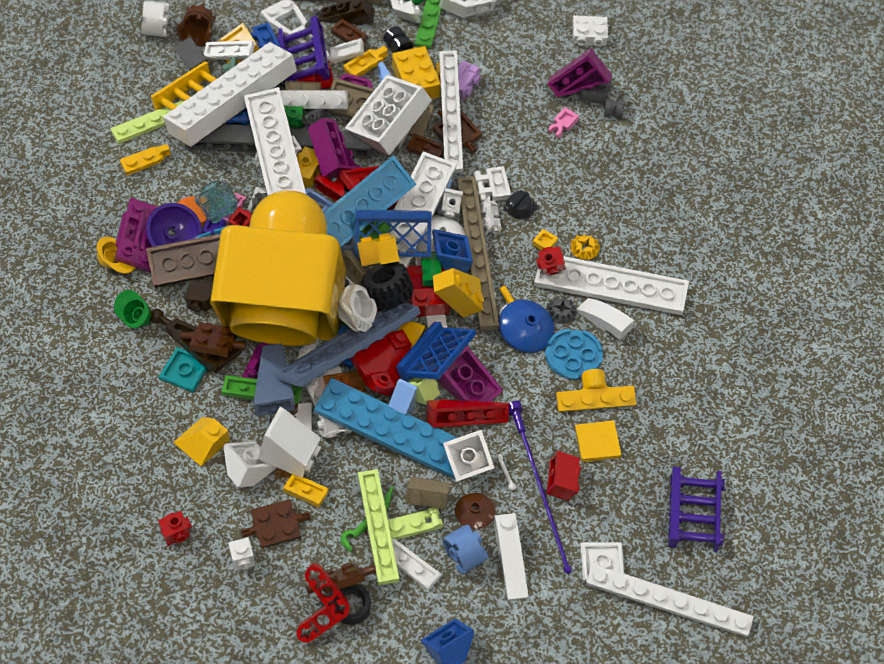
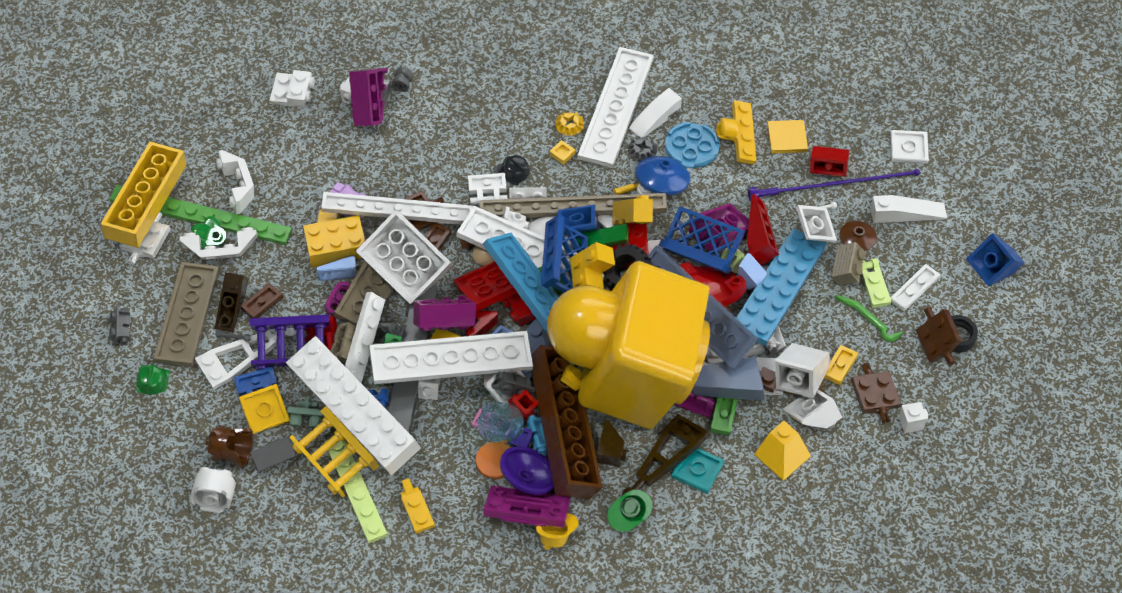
camera: 85 degrees left, 0 degrees up
(175, 528) = (887, 473): red brick -> none
(212, 340) = (672, 435): reddish brown plate -> none
(228, 49) = (273, 415): white tile -> none
(329, 608) = (978, 346): red beam -> none
(346, 51) = (289, 300): white tile -> none
(366, 62) = (307, 288): yellow hinge -> none
(378, 527) = (883, 304): yellowish green plate -> none
(397, 40) = (286, 254): black wheel -> none
(465, 548) = (907, 238): medium blue brick -> none
(551, 260) = (598, 141): red brick -> none
(564, 120) = (413, 121): bright pink plate -> none
(669, 600) = (946, 104): white plate -> none
(677, 516) = (859, 87): dark purple fence -> none

